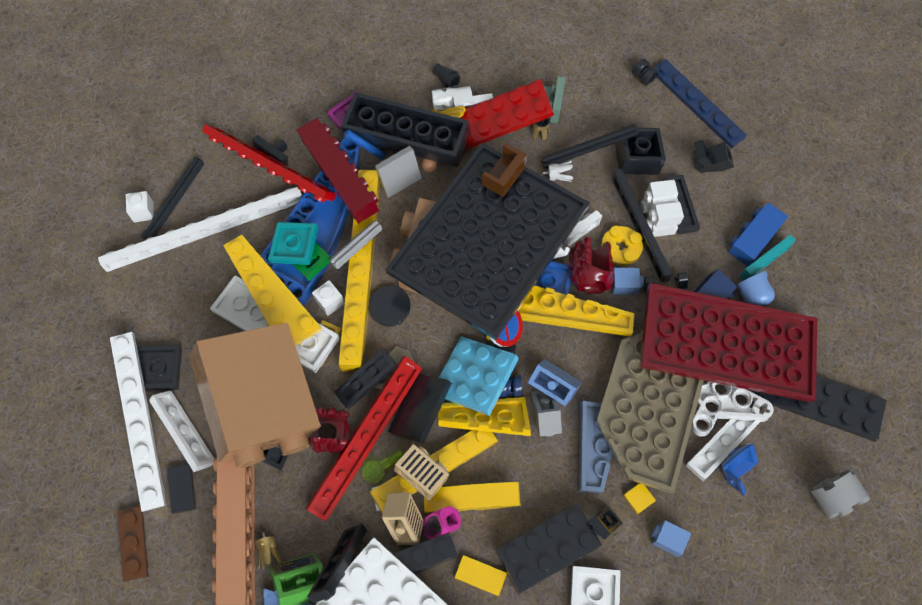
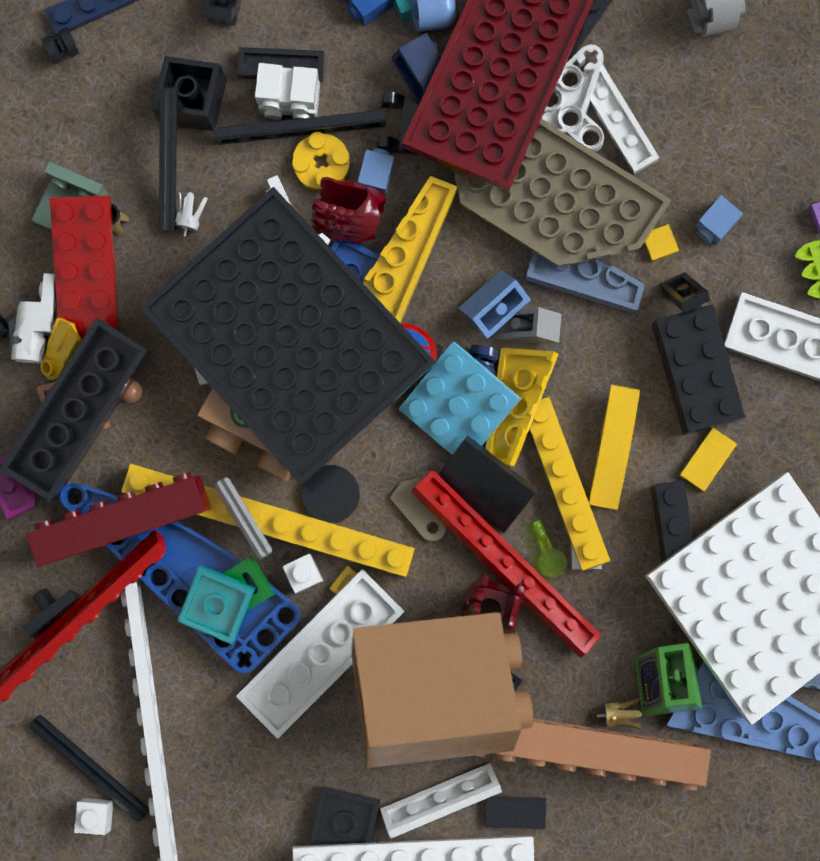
camera: 75 degrees left, 15 degrees up
(269, 292) = (297, 644): yellow wing -> none
(337, 563) = (665, 626): black plate -> none
(364, 144) = (78, 475): blue piece -> none
(365, 378) = (430, 546): black plate -> none
(398, 171) = (136, 436): light grey tile -> none
(403, 518) = (626, 536): tan brick -> none
(421, 471) = (576, 499): tan brick -> none
(441, 522) = (639, 490): dark pink rock -> none
(505, 170) = (197, 287): reddish brown panel -> none
(739, 463) = (648, 112): blue piece -> none

